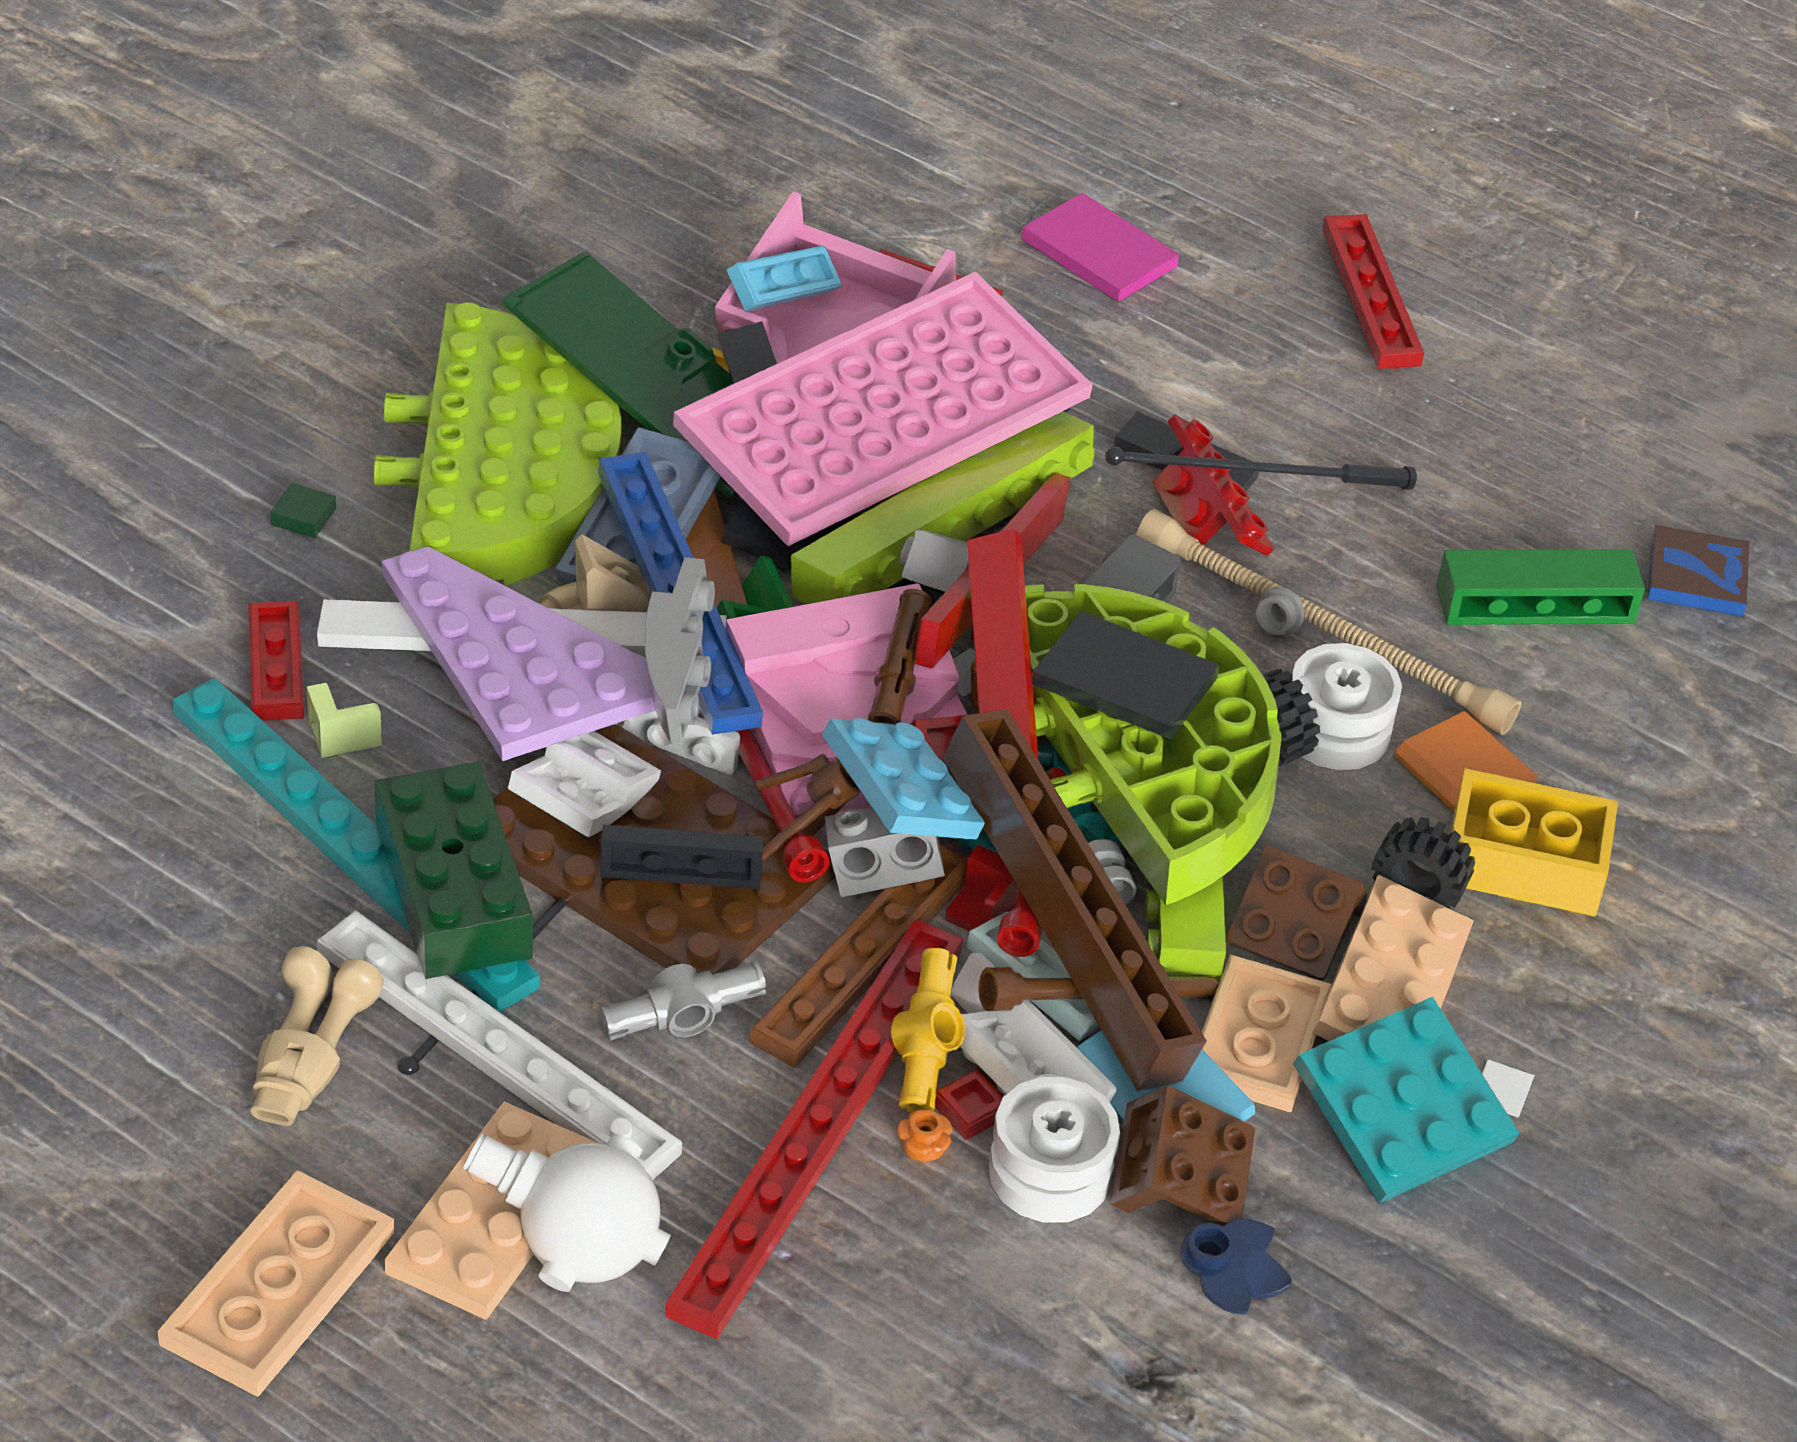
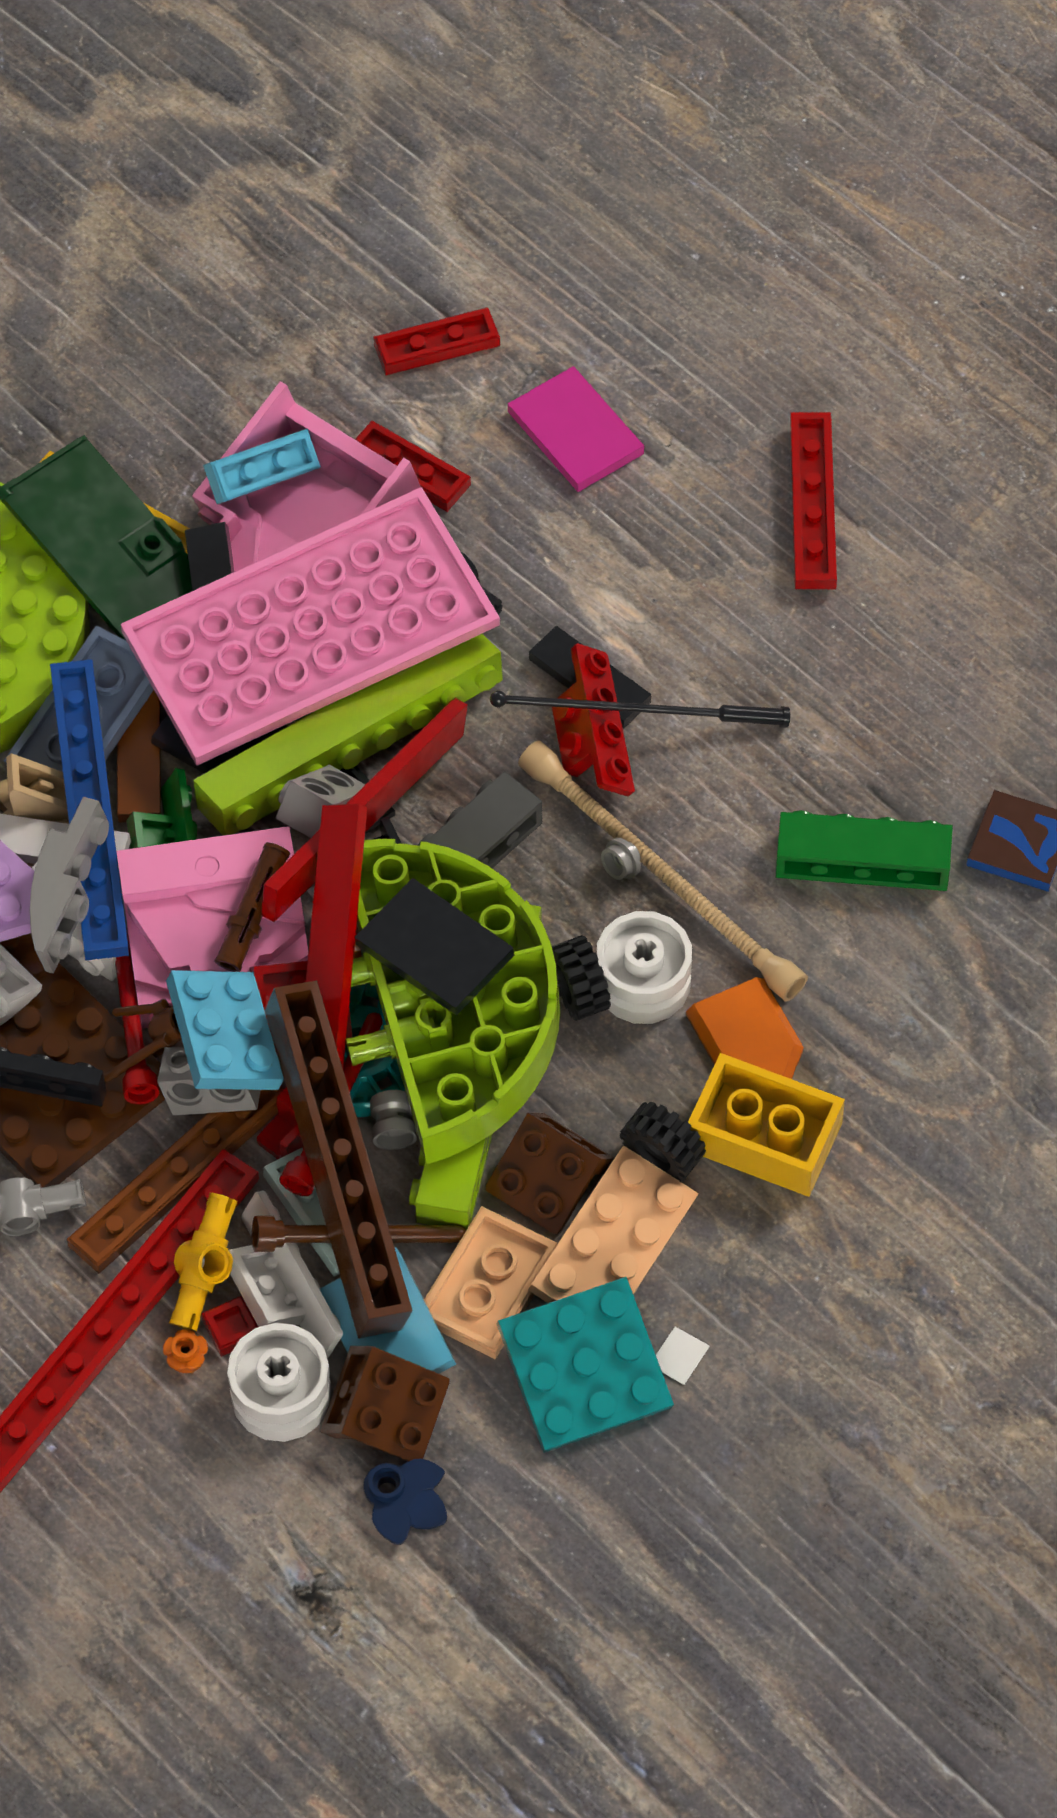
camera: 15 degrees right, 15 degrees up
(928, 182) = (436, 341): none -> red tile

